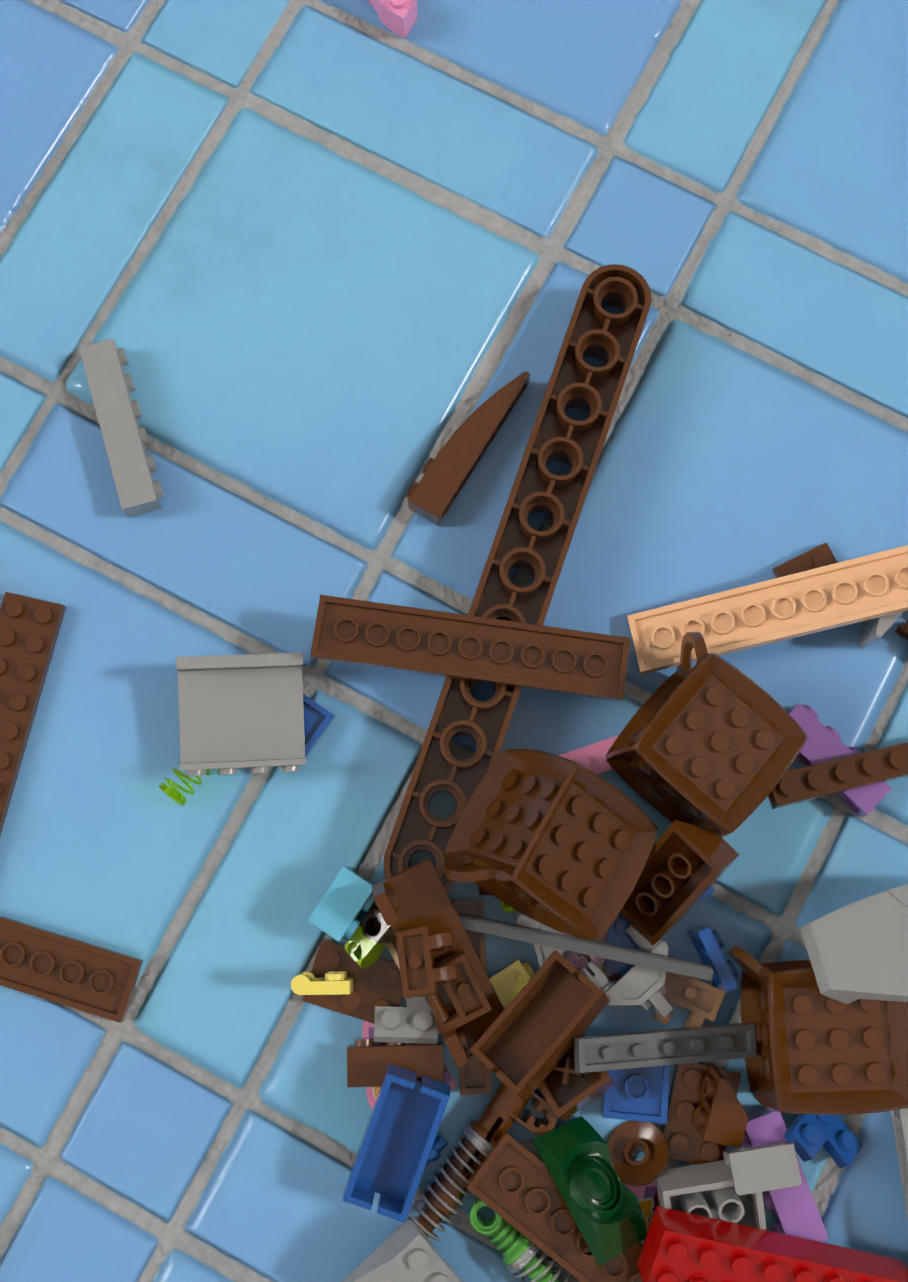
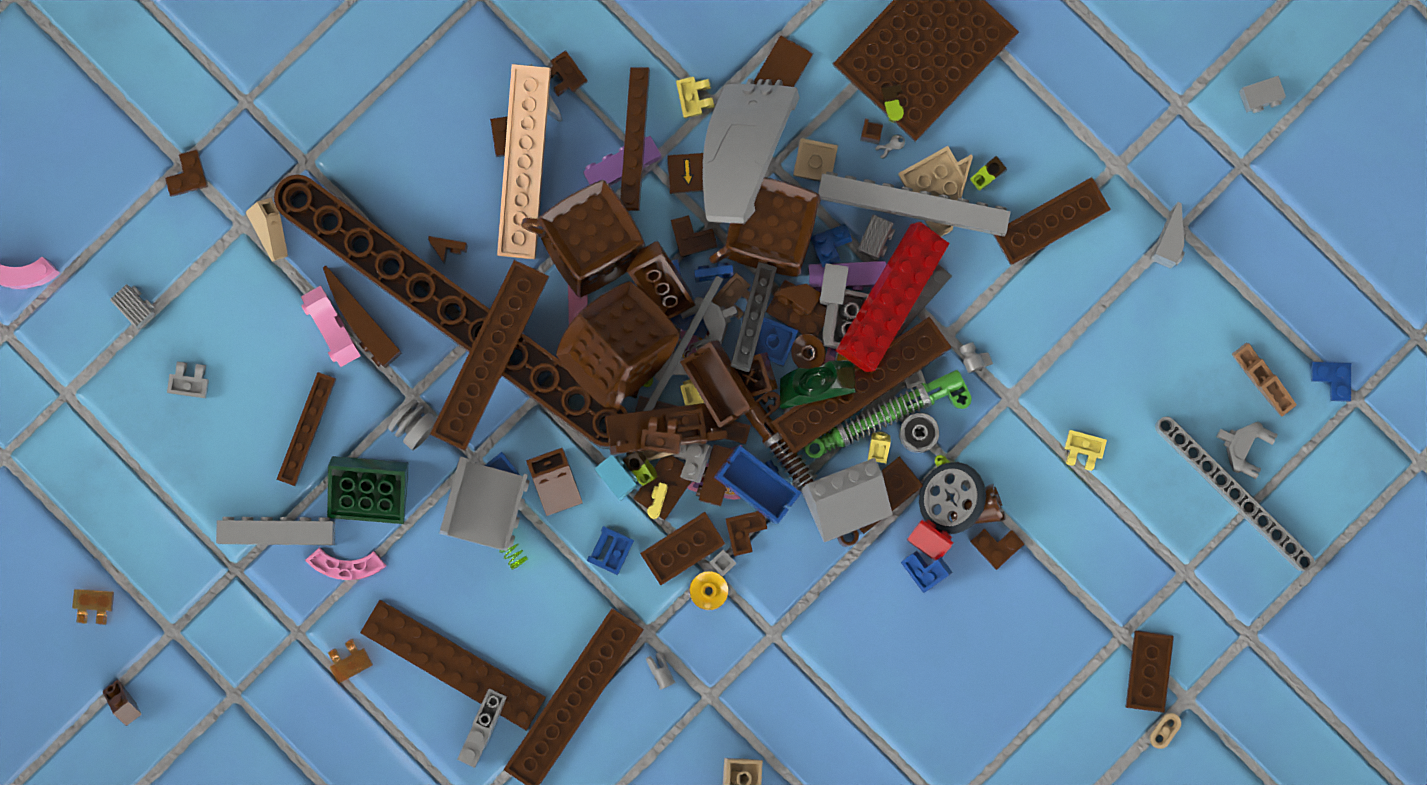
camera: 70 degrees left, 5 degrees up
(59, 1073) = (663, 674): none -> light grey hinge
(96, 542) = (344, 569): none -> bright pink tile
(196, 1118) = (706, 580): none -> yellow dish
(220, 536) = (367, 490): none -> dark green slope
(229, 940) = (616, 553): none -> blue plate
(260, 1117) = (722, 563): none -> light grey plate
(265, 1044) = (682, 548): none -> reddish brown plate
(284, 424) = (306, 429): none -> reddish brown plate
(297, 244) = (188, 386): none -> light grey plate
(311, 809) = (554, 481): none -> slope
(321, 1128) = (739, 530): none -> reddish brown plate
(336, 565) = (411, 422): none -> light grey wheel
(387, 139) = (133, 306): none -> light grey brick
(442, 412) = (330, 325): none -> bright pink brick
(556, 282) = (268, 226): none -> tan slope
(595, 163) = (192, 176): none -> reddish brown plate
(615, 532) = (443, 245): none -> reddish brown slope
(747, 900) = (691, 242): none -> reddish brown plate
(851, 864) = (685, 173): none -> reddish brown tile
(859, 1206) = (875, 237): none -> light grey brick

